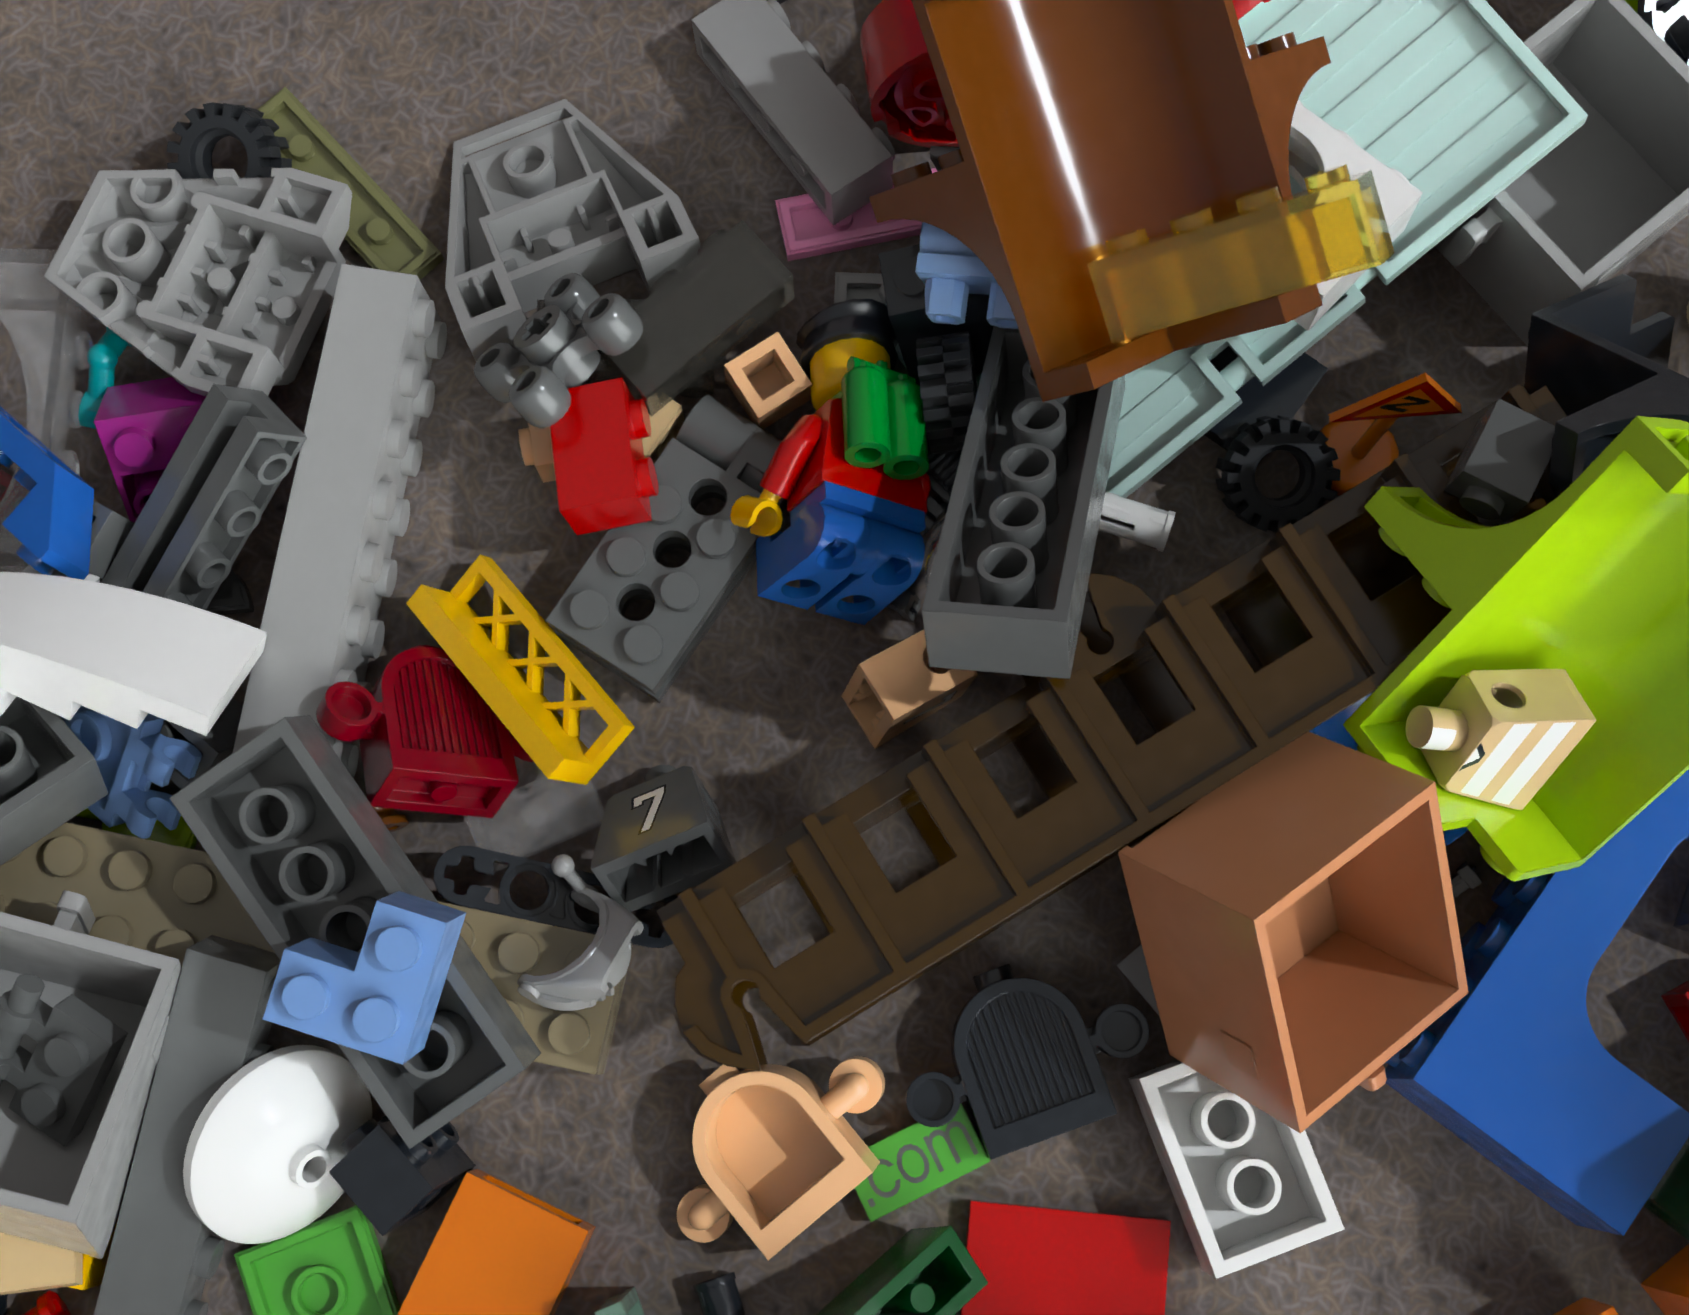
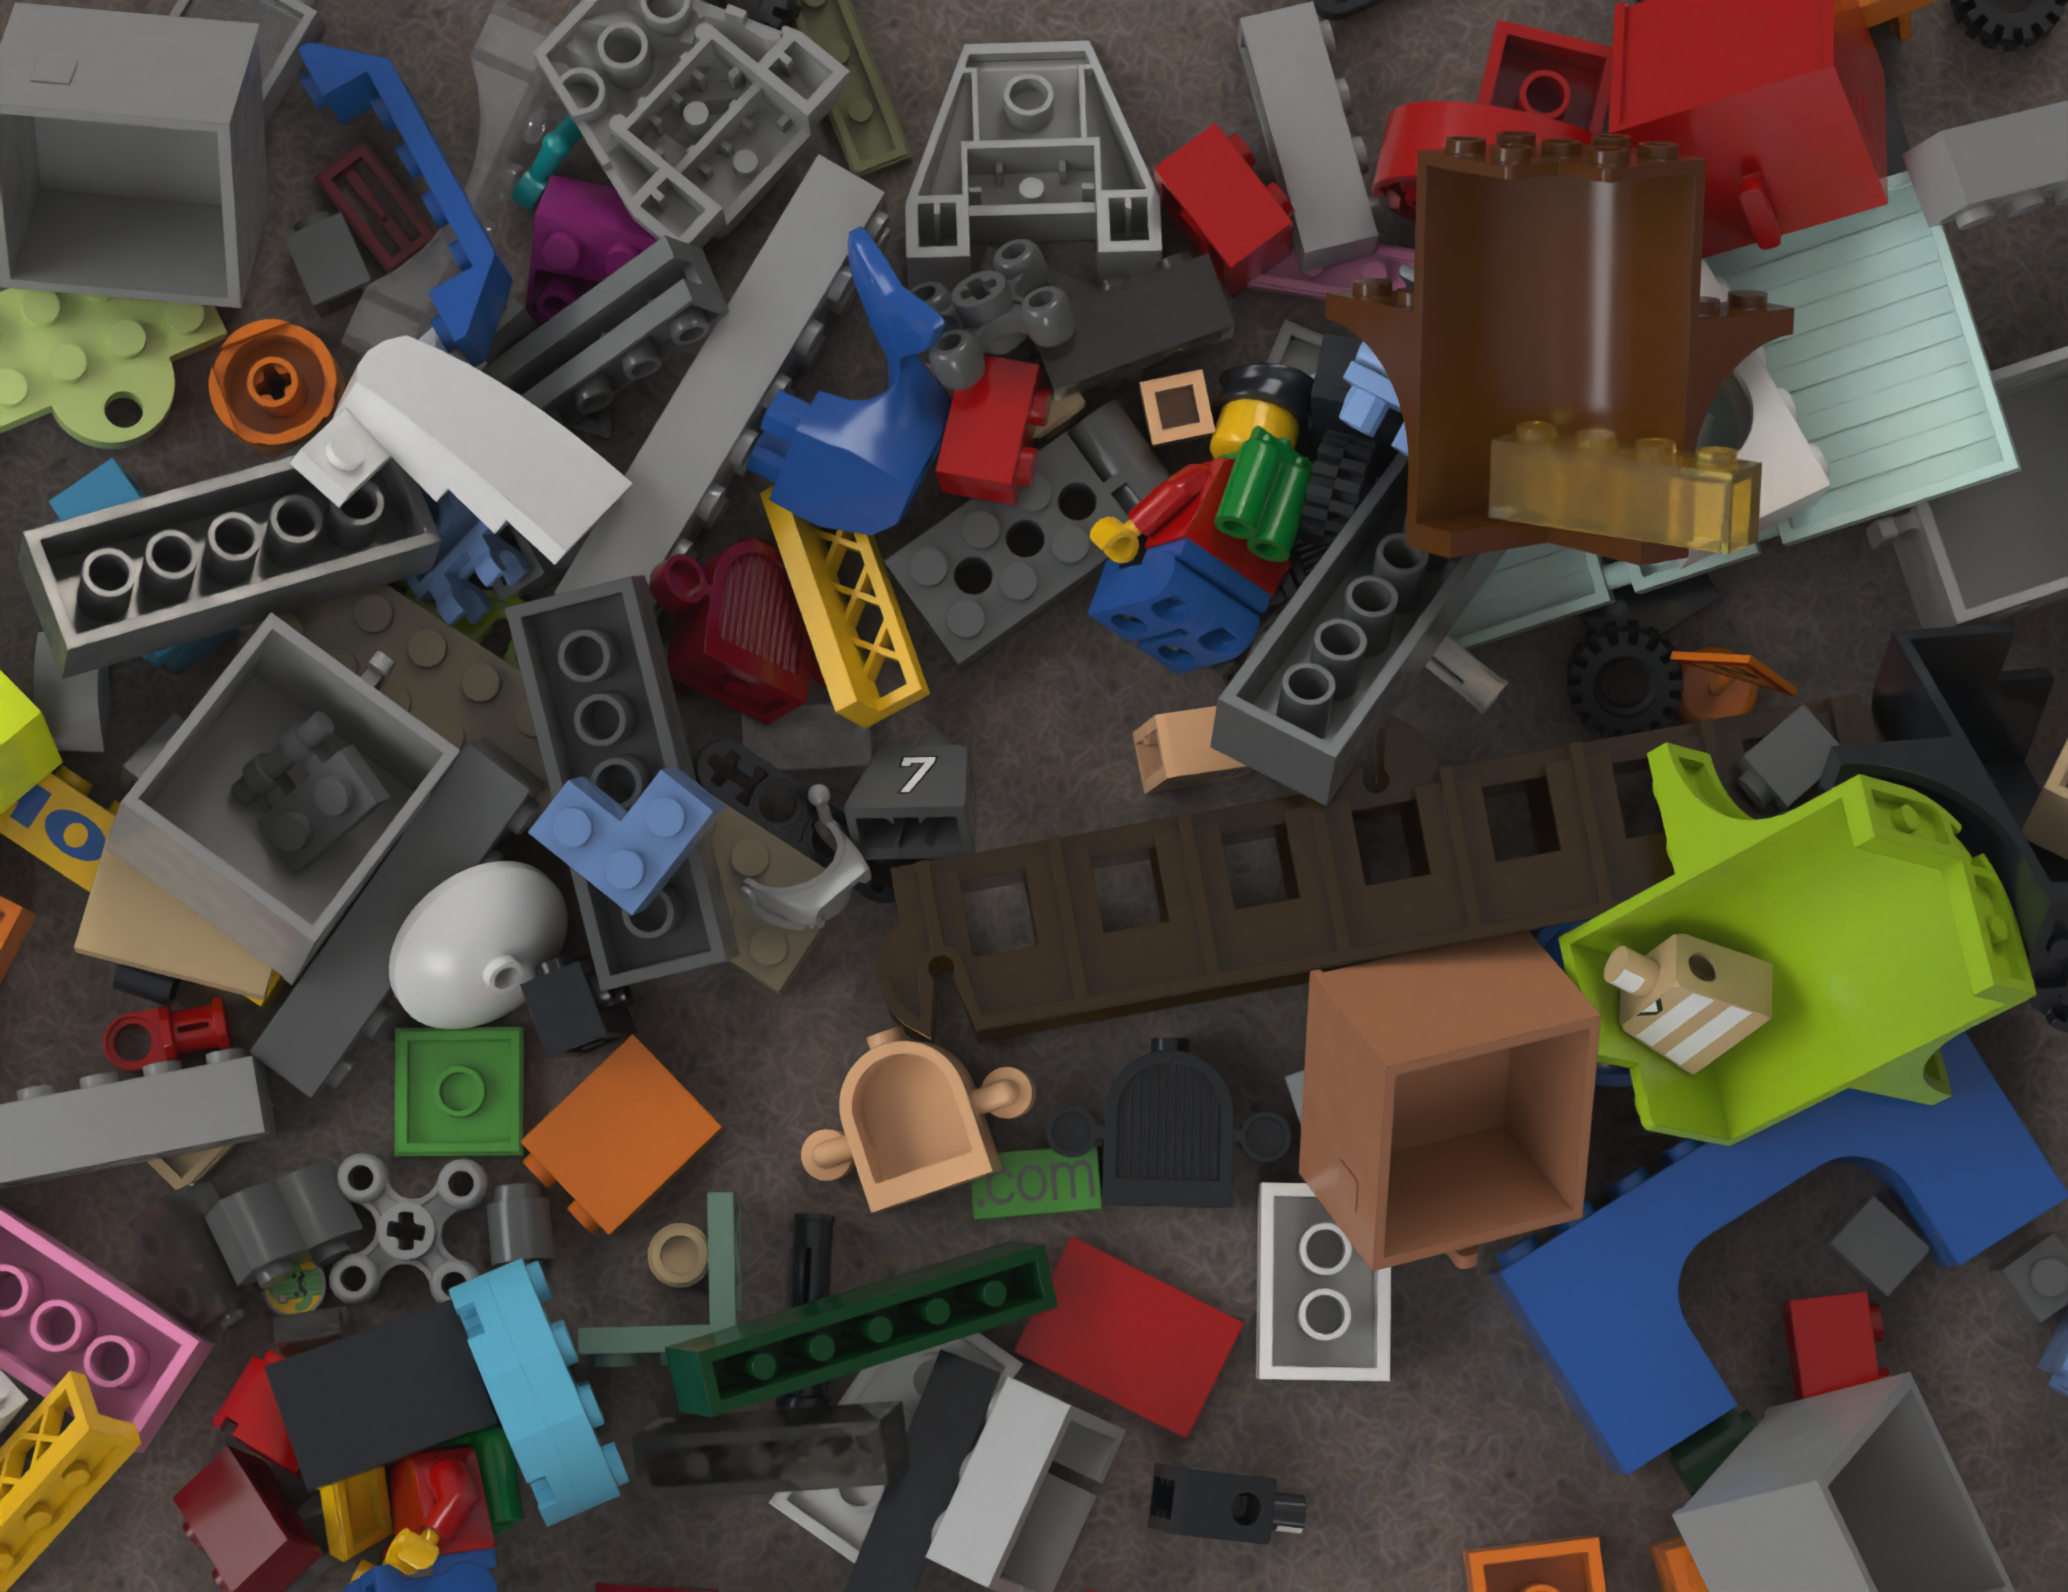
camera: 20 degrees right, 5 degrees up
(489, 528) = (862, 459): none -> blue hips
(736, 174) = (1226, 207): none -> red brick

